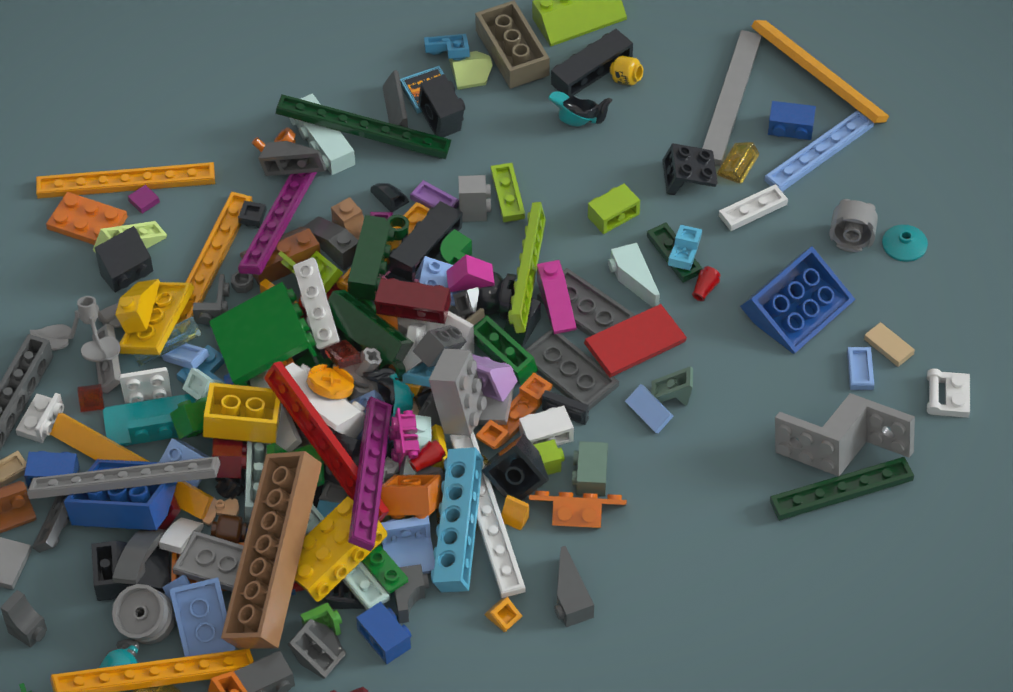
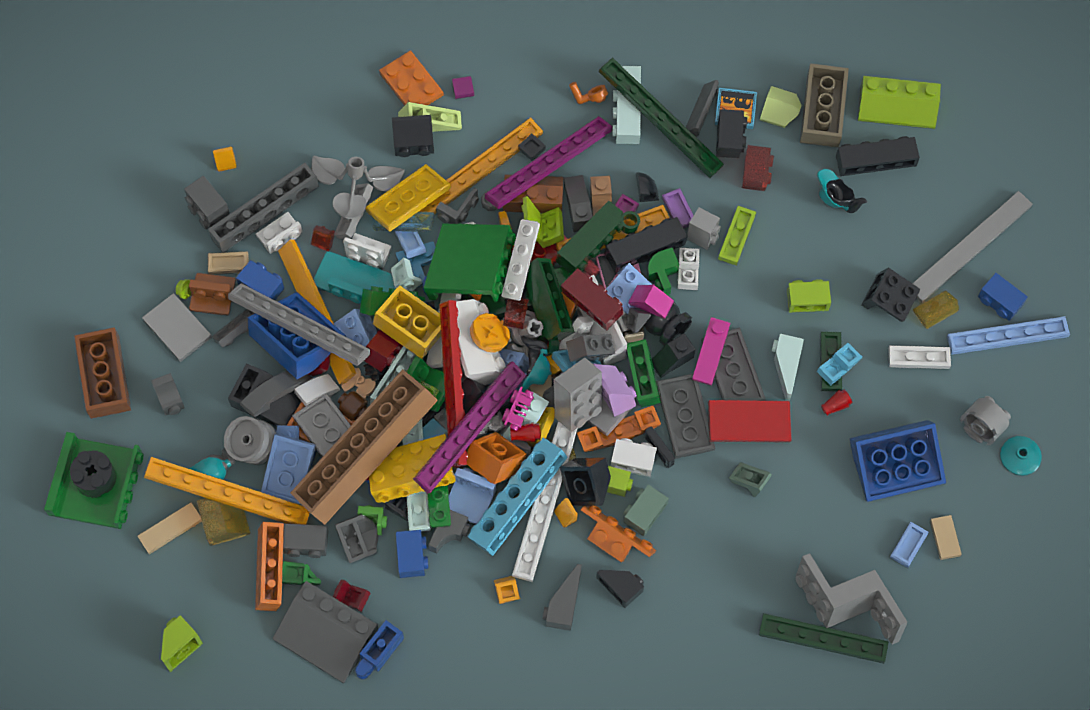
camera: 30 degrees right, 15 degrees up
(125, 180) = (460, 63): light orange tile -> none
(137, 306) = (399, 179): yellow slope -> none
(290, 158) = (585, 113): dark grey slope -> none
(455, 45) = (778, 78): dark azure plate -> none
(482, 245) = (688, 268): none -> white slope
(485, 127) = (757, 167): none -> clear red brick
(528, 266) = (702, 316): lime plate -> none
(614, 546) = (621, 585): none -> black slope
(626, 70) = (900, 178): yellow head -> none
(649, 408) = (722, 485): light blue tile -> none
(820, 71) = (1056, 264): light orange tile -> none
(956, 393) = (968, 611): white plate -> none

